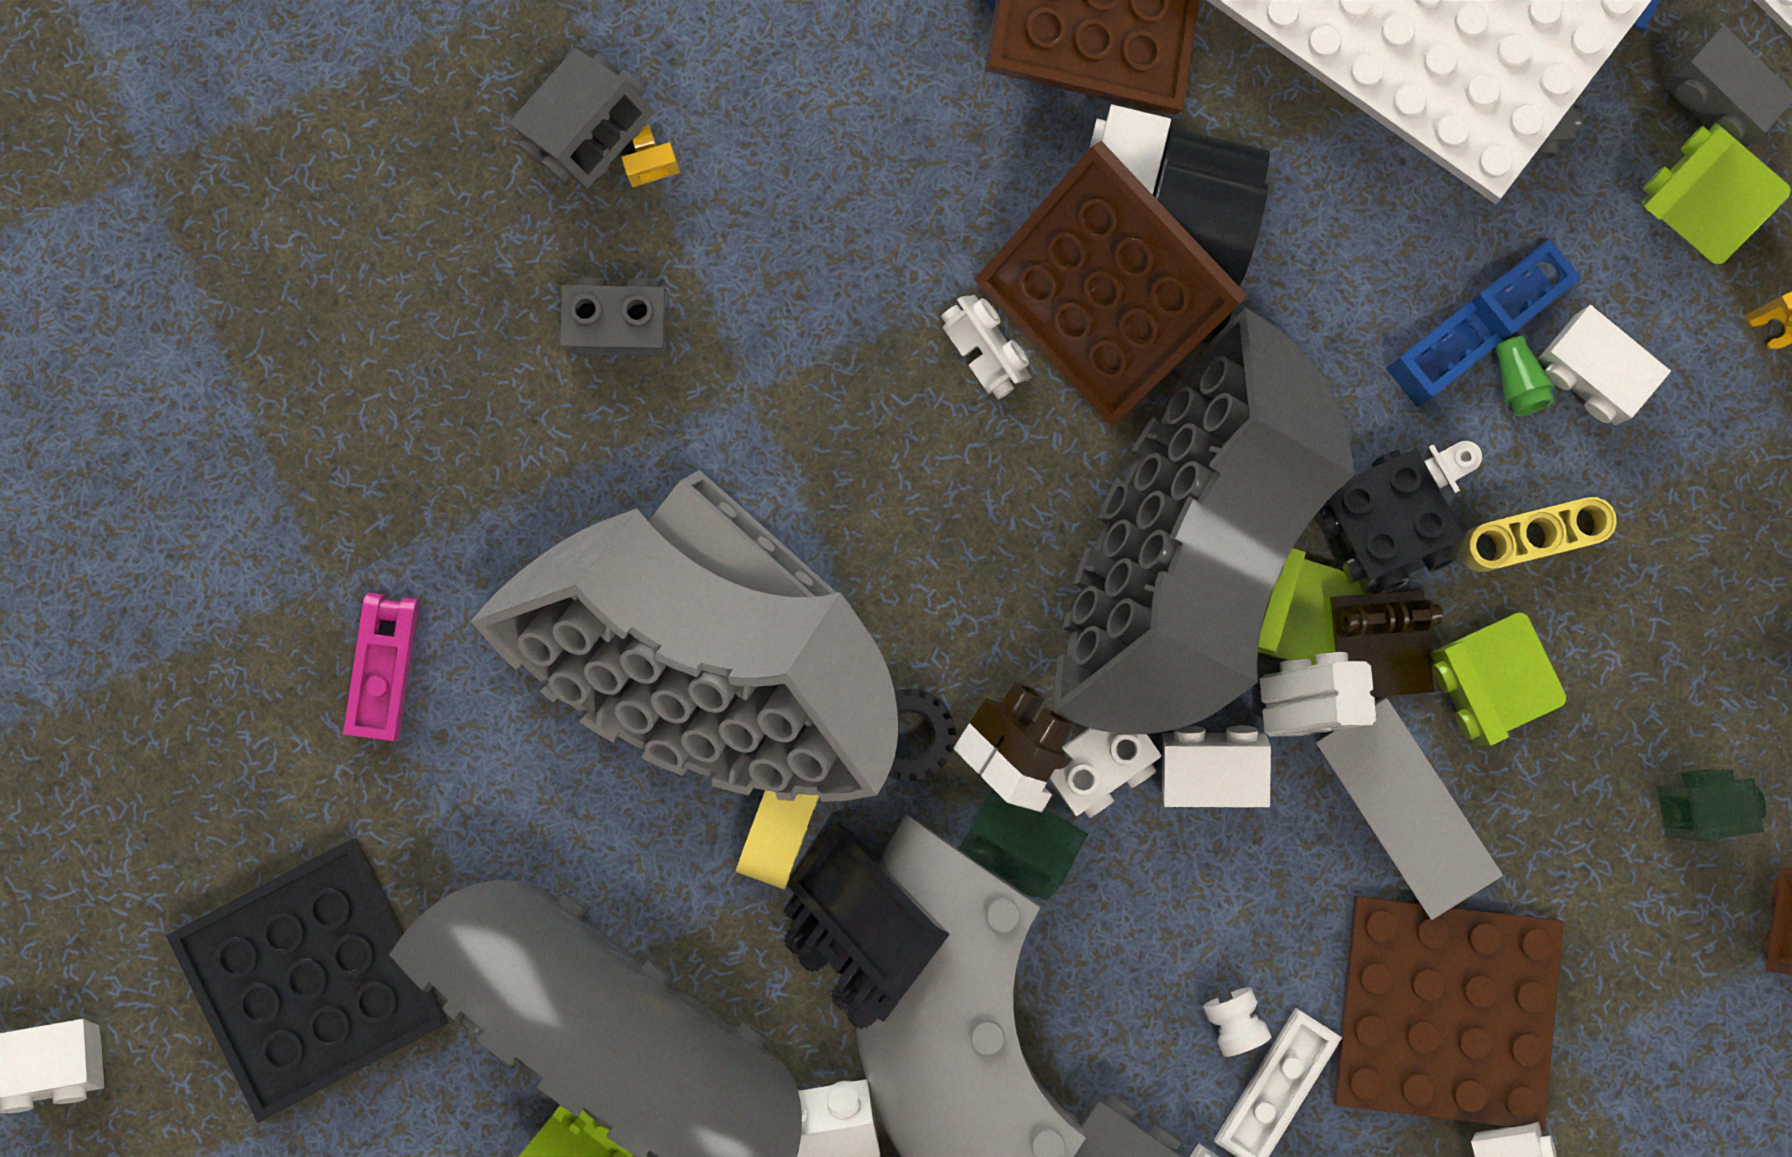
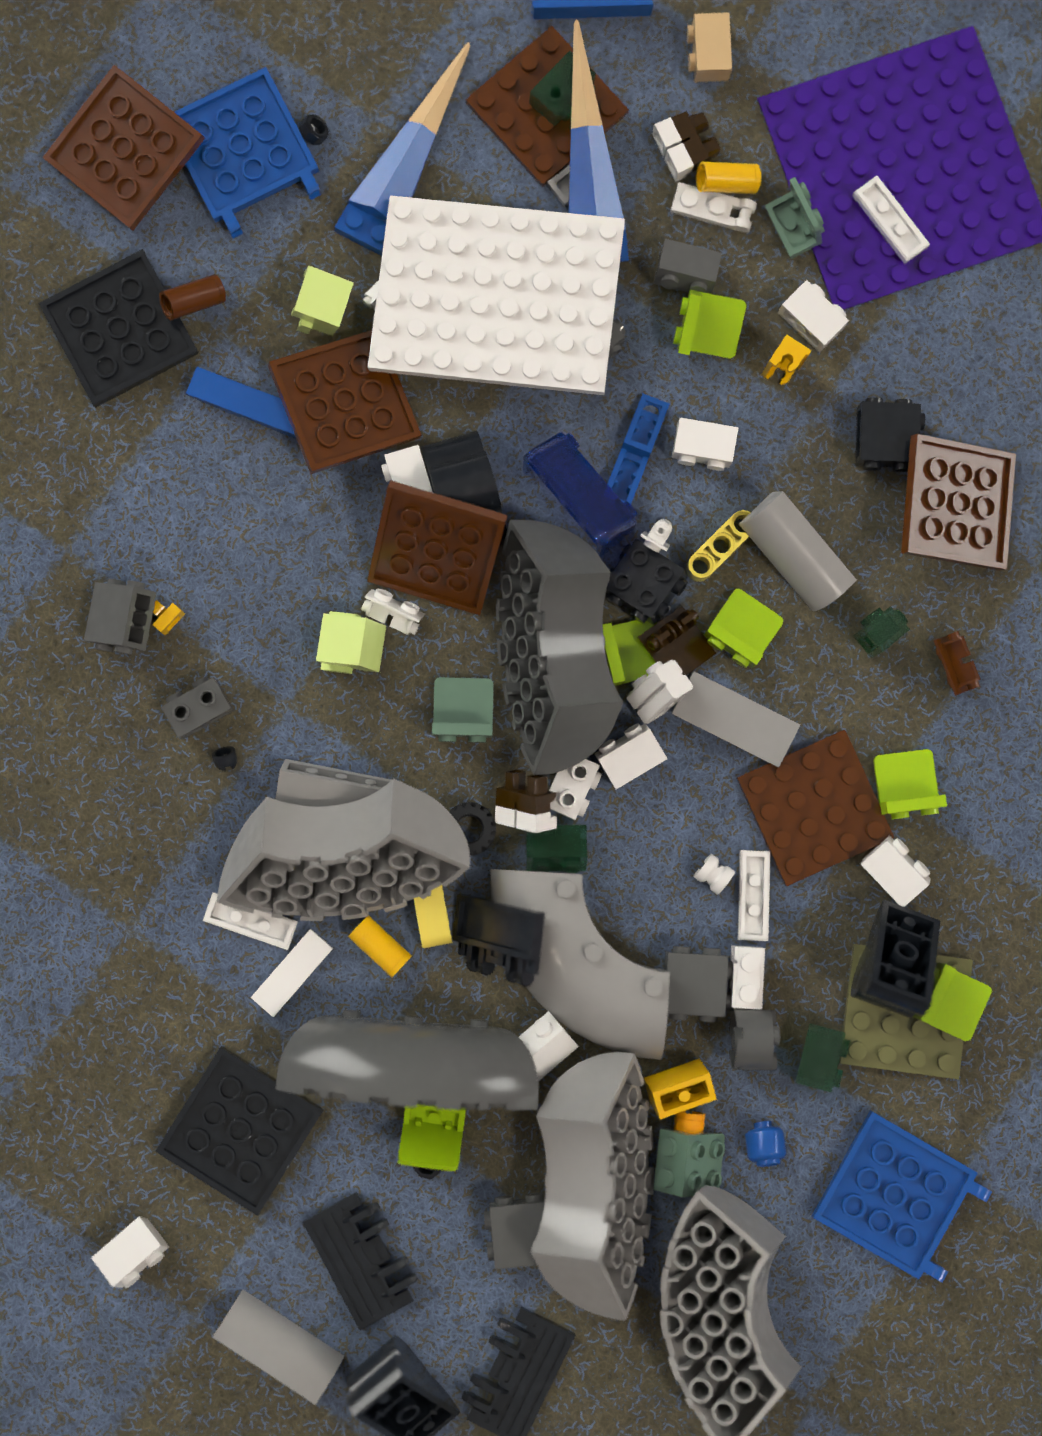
camera: 45 degrees left, 0 degrees up
(381, 668) = (183, 953): dark pink plate -> none
(511, 690) = (254, 925): none -> white tile
(522, 791) = (292, 972): none -> white tile
(606, 419) = (225, 761): none -> black hinge
(674, 830) = (380, 946): none -> yellow pin
(895, 355) = (350, 643): none -> yellowish green plate
(1005, 551) = (463, 709): none -> sand green bracket
(1378, 327) = (581, 491): none -> clear blue windscreen
(1522, 377) = (669, 471): bright green cone -> none
(1612, 1062) = (907, 783): none -> lime bracket
(1652, 610) = (797, 551): none -> light grey brick

